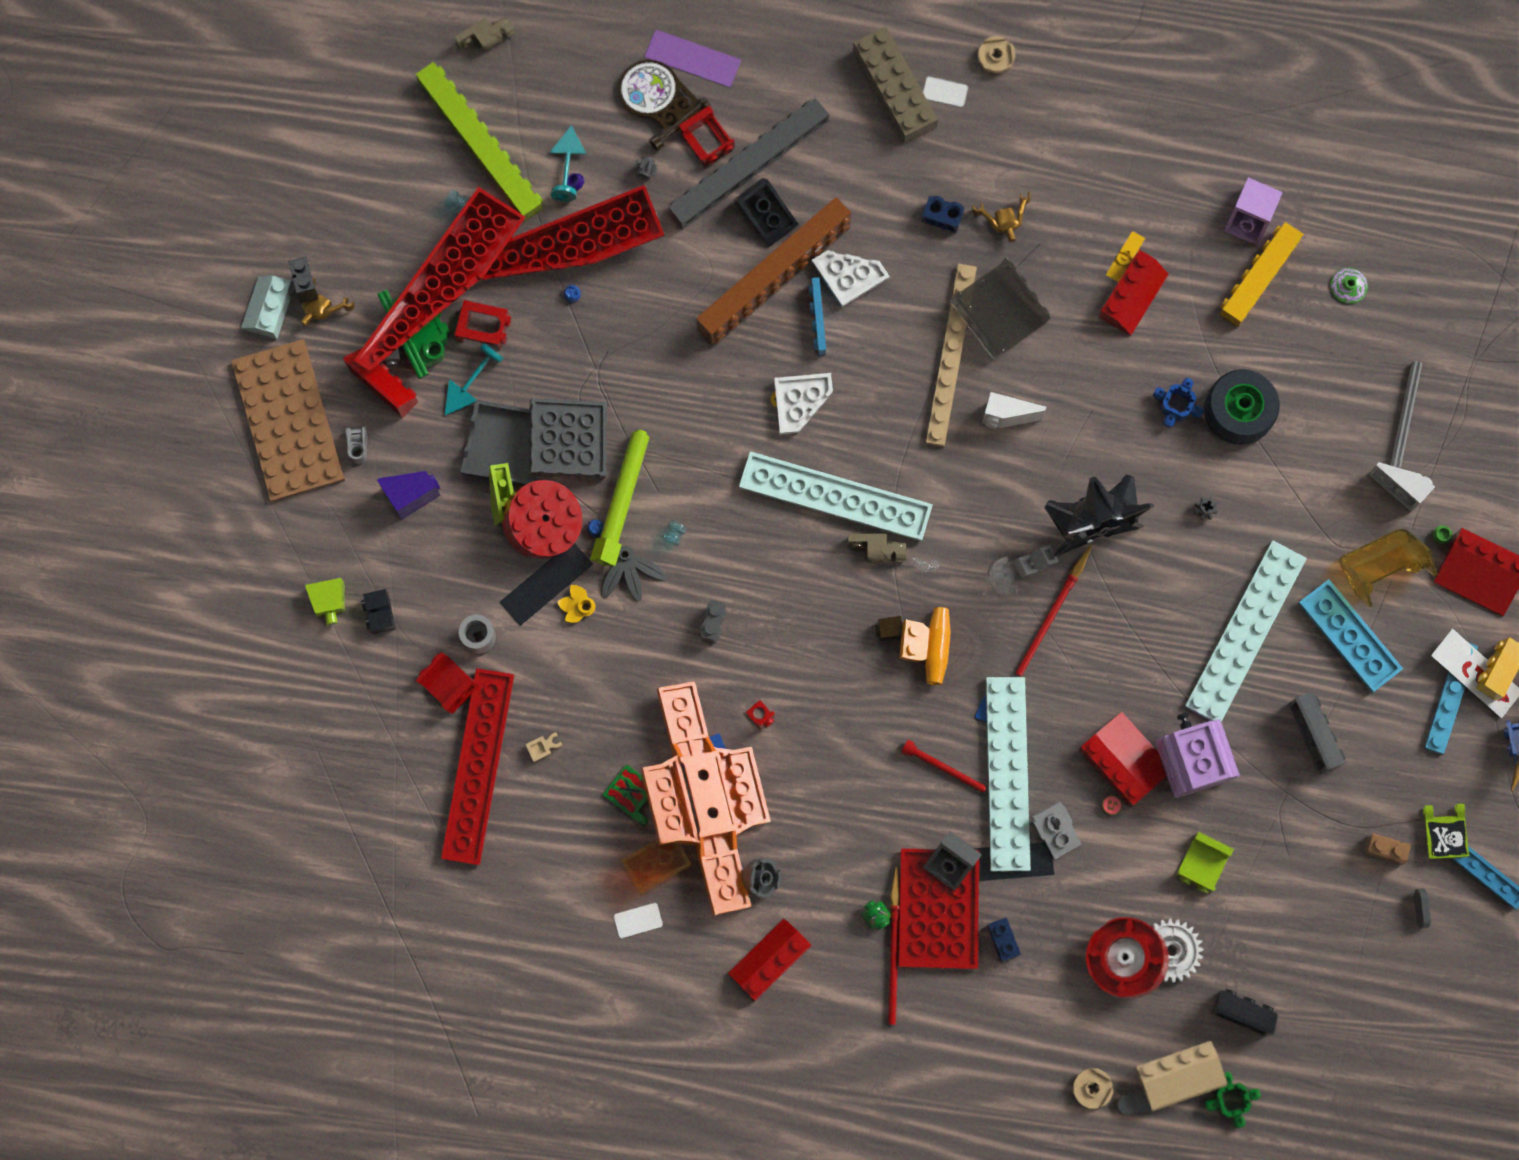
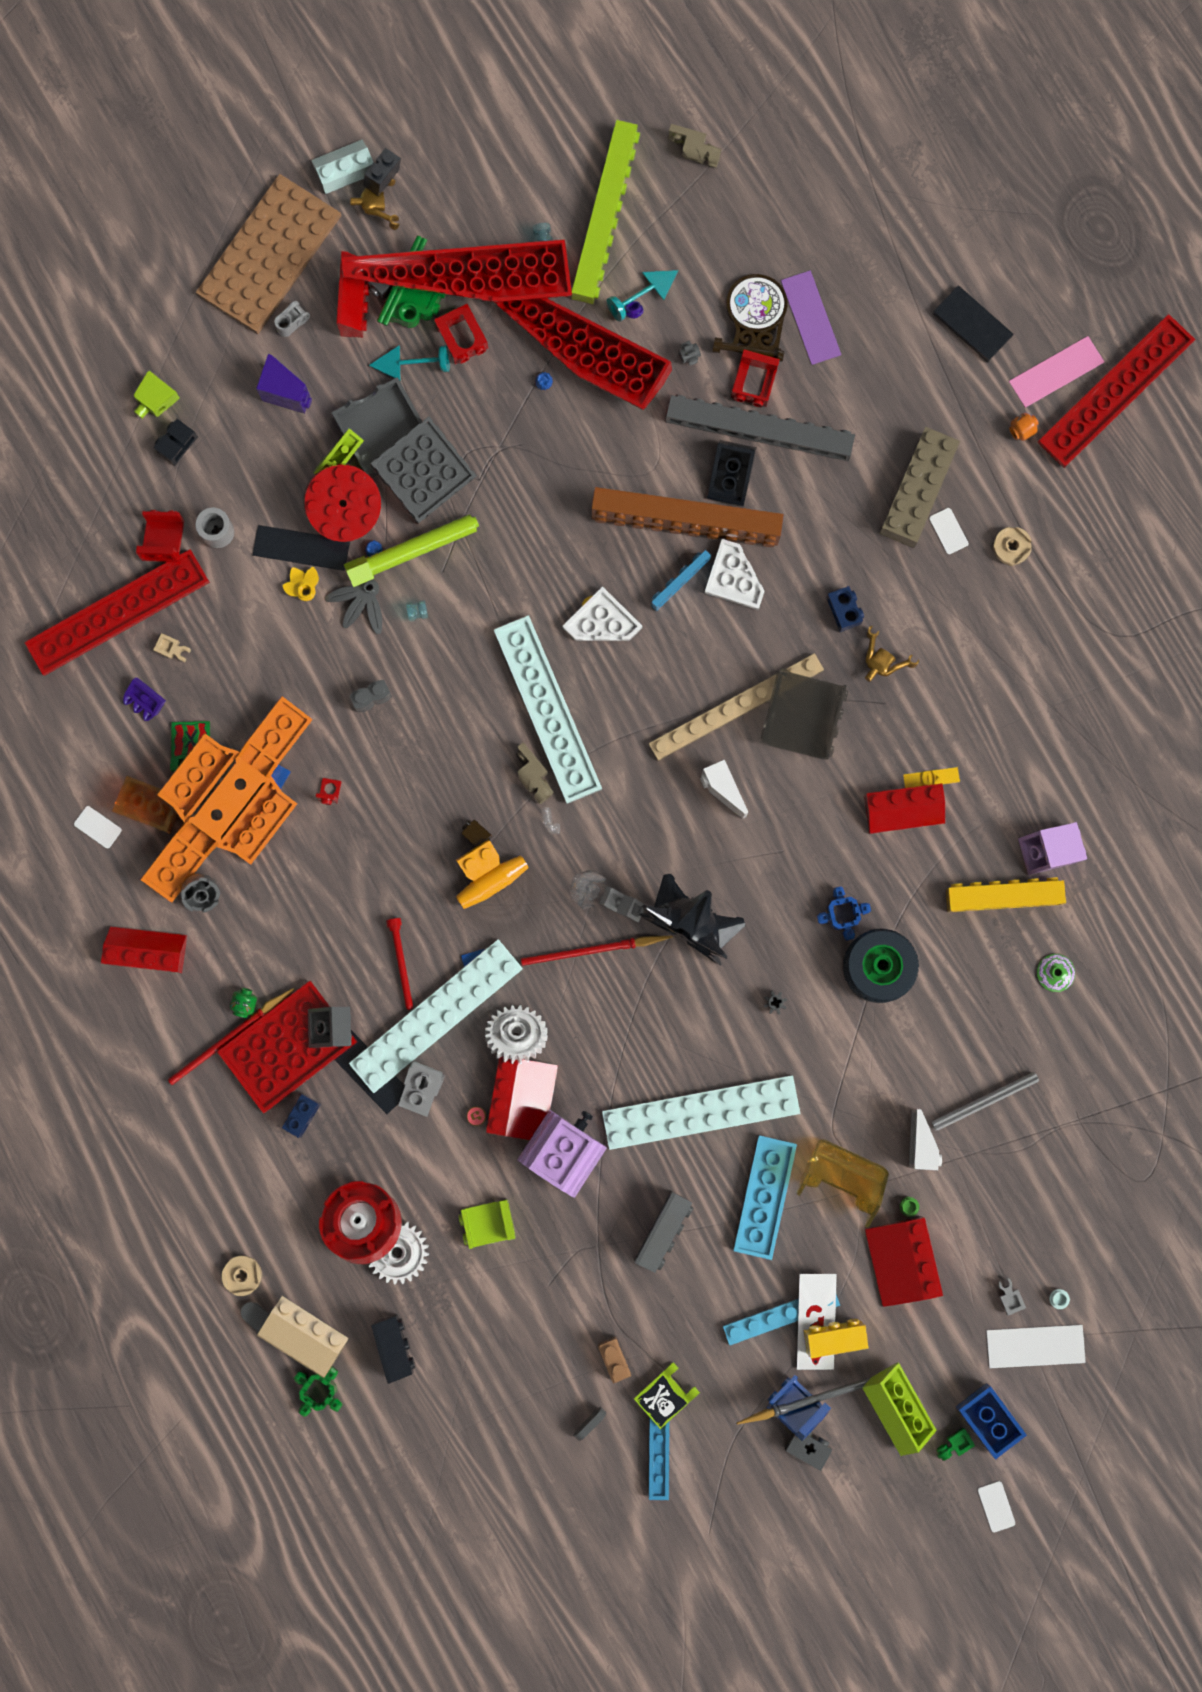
camera: 50 degrees right, 5 degrees up
(565, 800) = (144, 698): none -> dark purple plate
(1068, 734) = (503, 1026): none -> white gear

